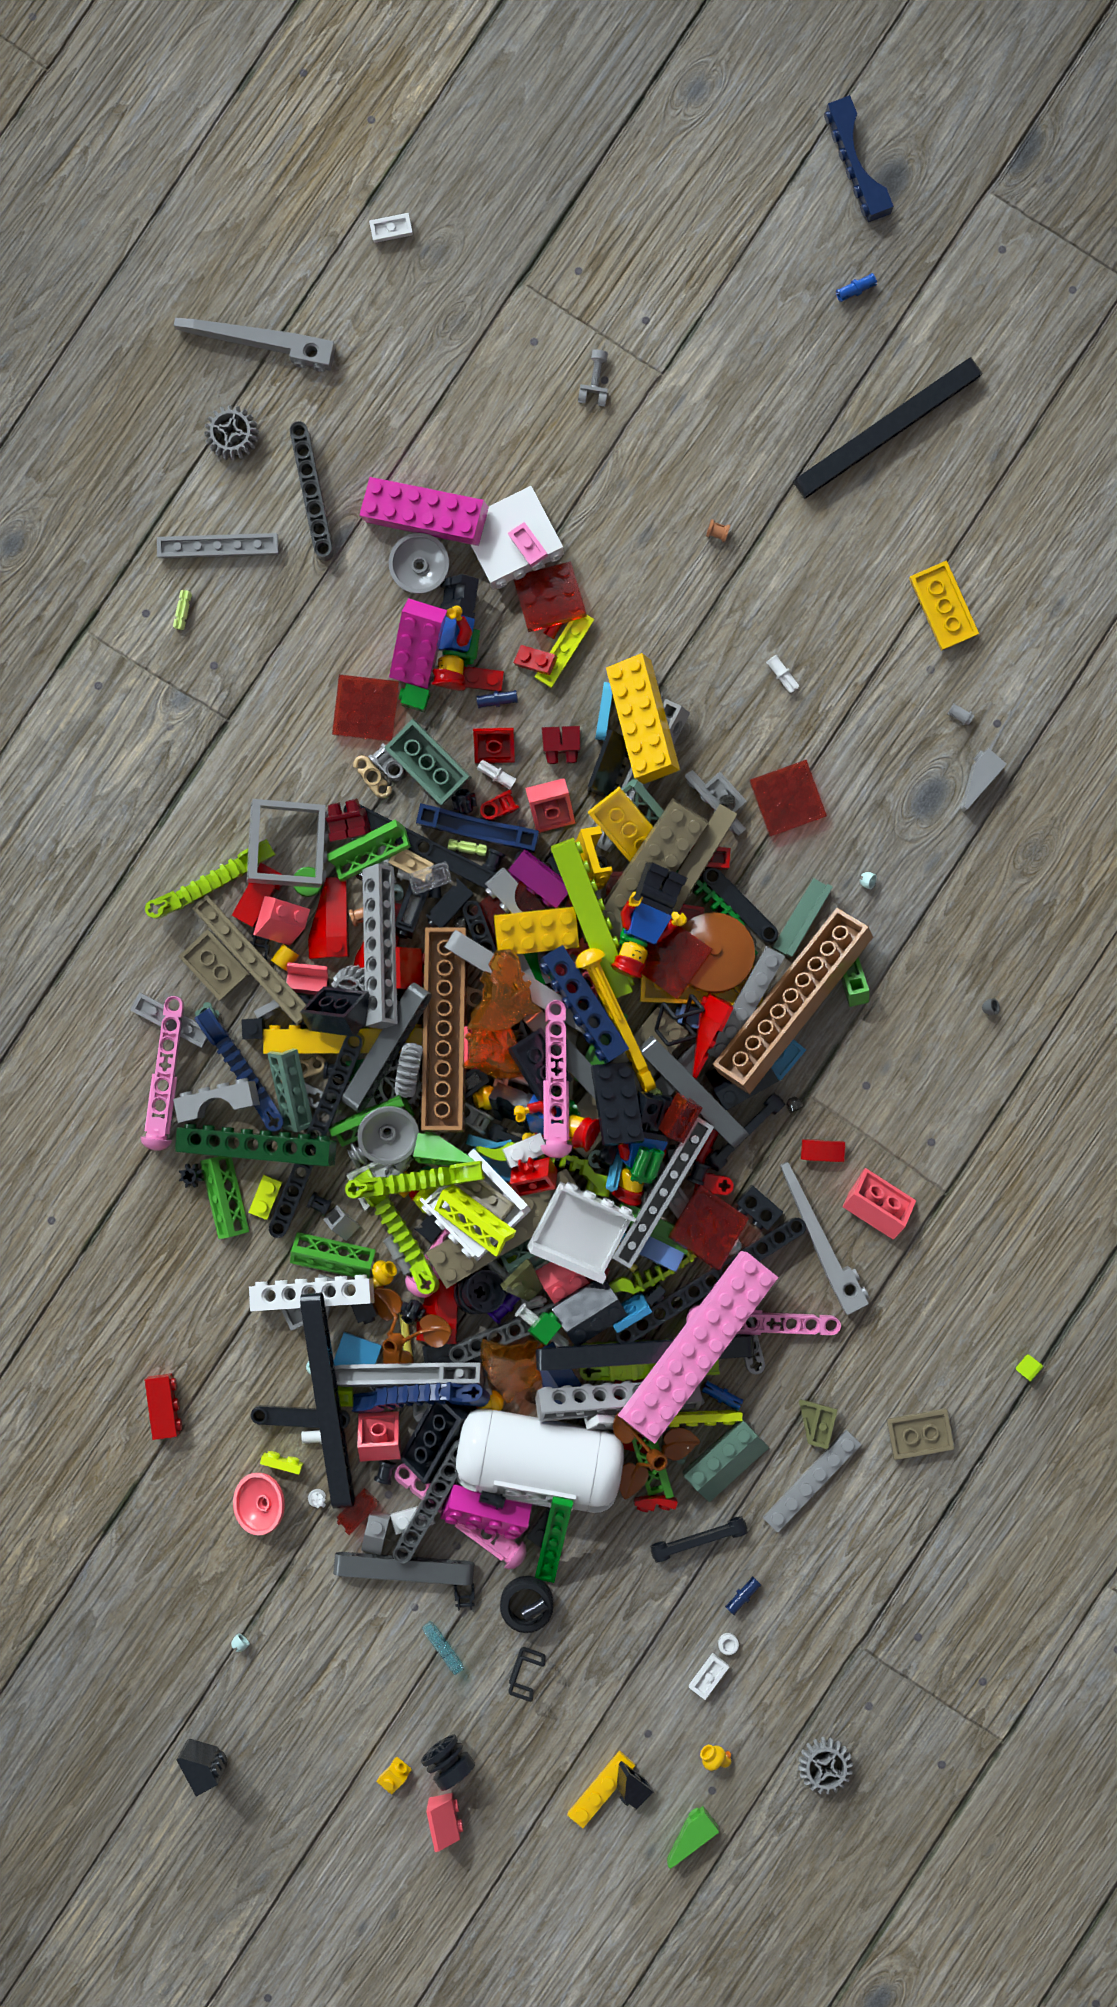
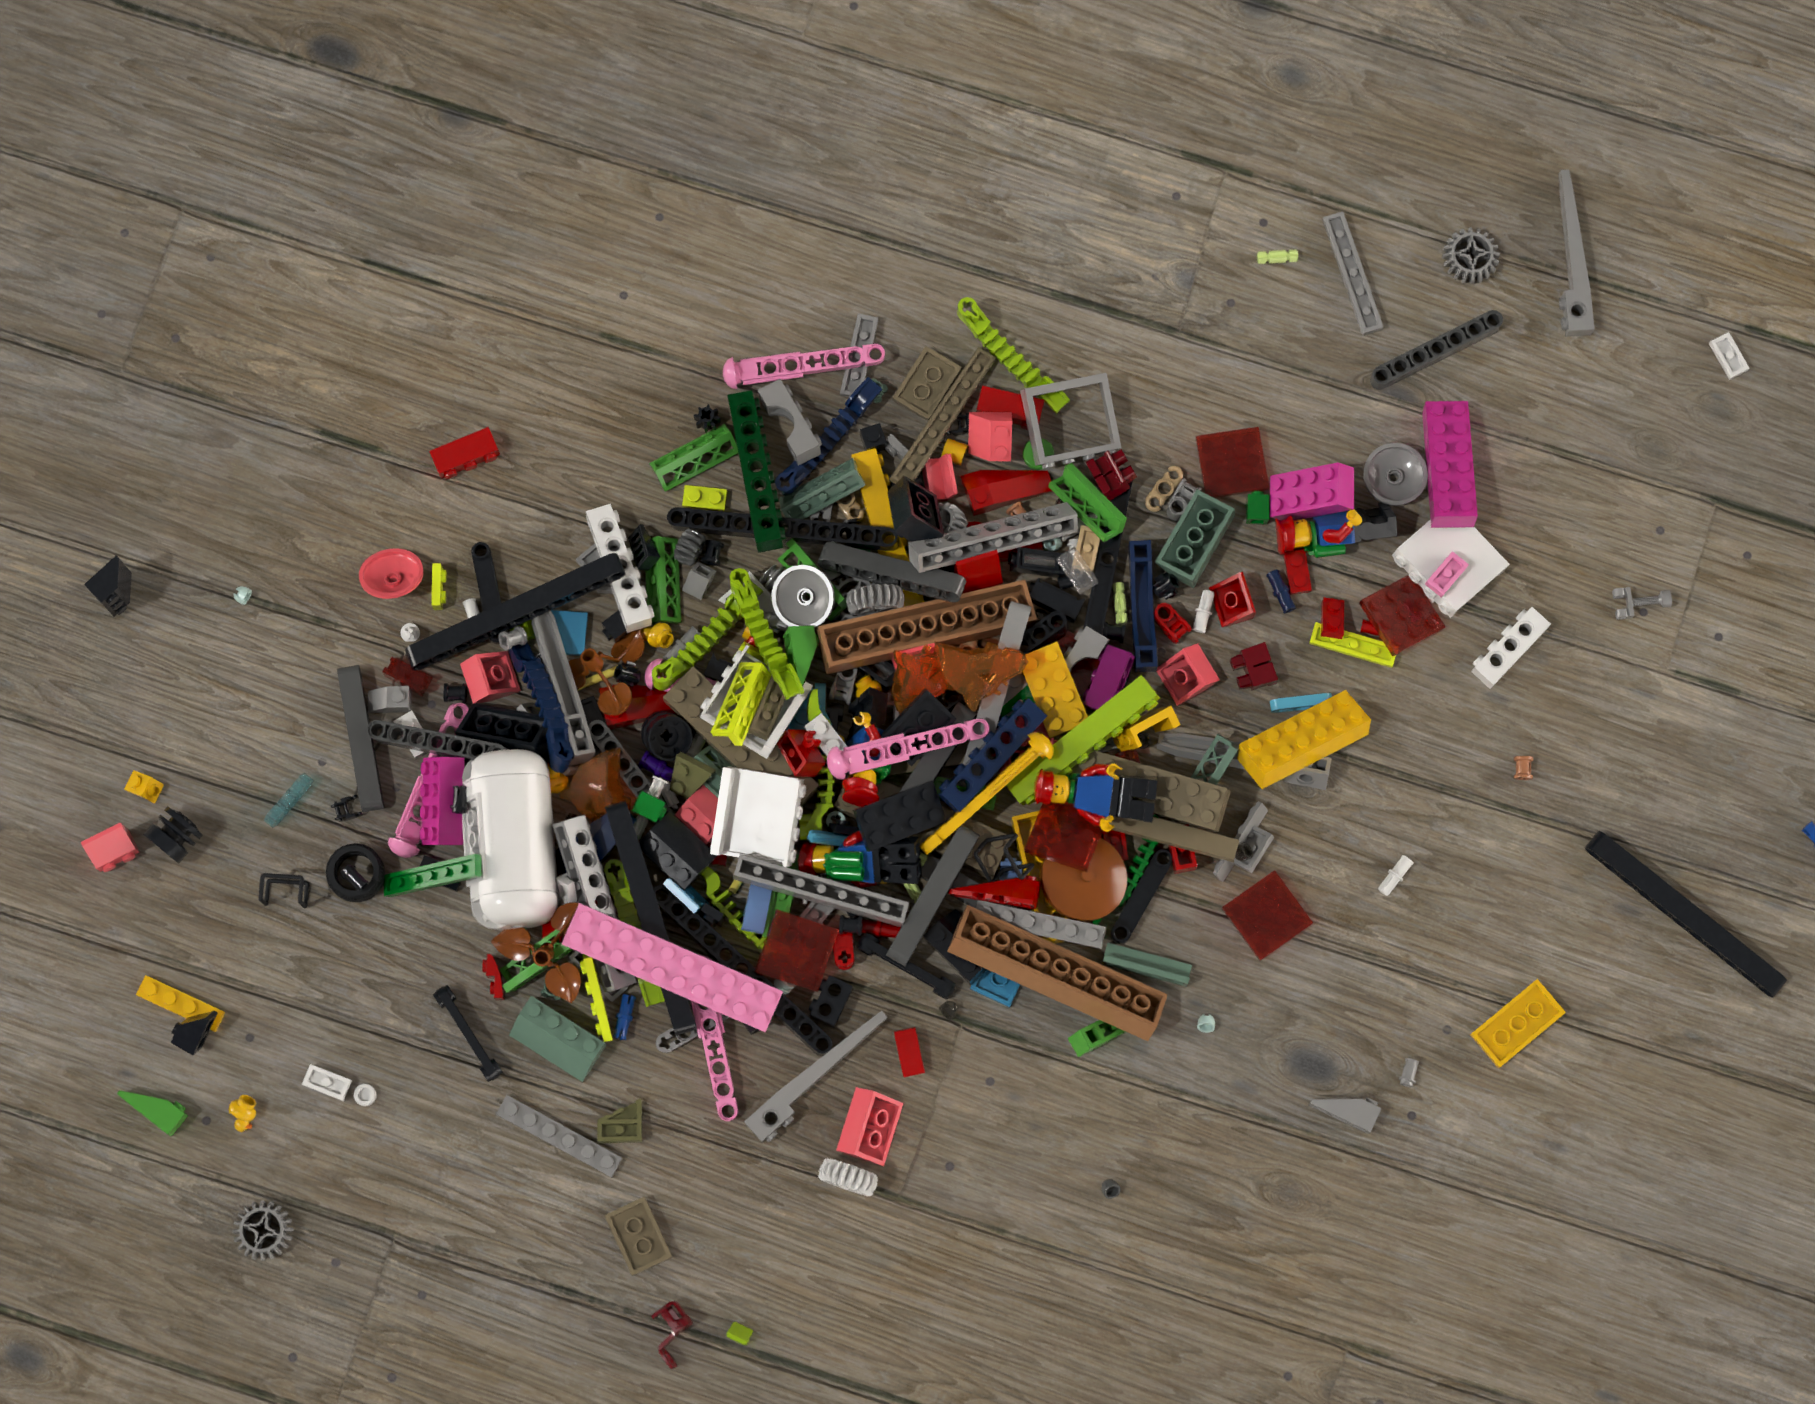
camera: 75 degrees right, 10 degrees down
(299, 1267) = (649, 555): none -> black slope
(309, 1224) = (689, 547): none -> dark grey gear
(350, 1408) = (512, 638): none -> light grey bush
(593, 479) = (1491, 674): none -> white brick
(608, 765) = (1244, 719): black slope -> none
(621, 822) = (1191, 746): yellow plate -> none
(680, 1118) = (902, 885): clear red hinge -> none
(743, 1595) = (420, 1095): dark blue pin -> none
(921, 1236) = (848, 1177): none -> white gear
(1006, 1414) = (676, 1324): none -> dark red piece

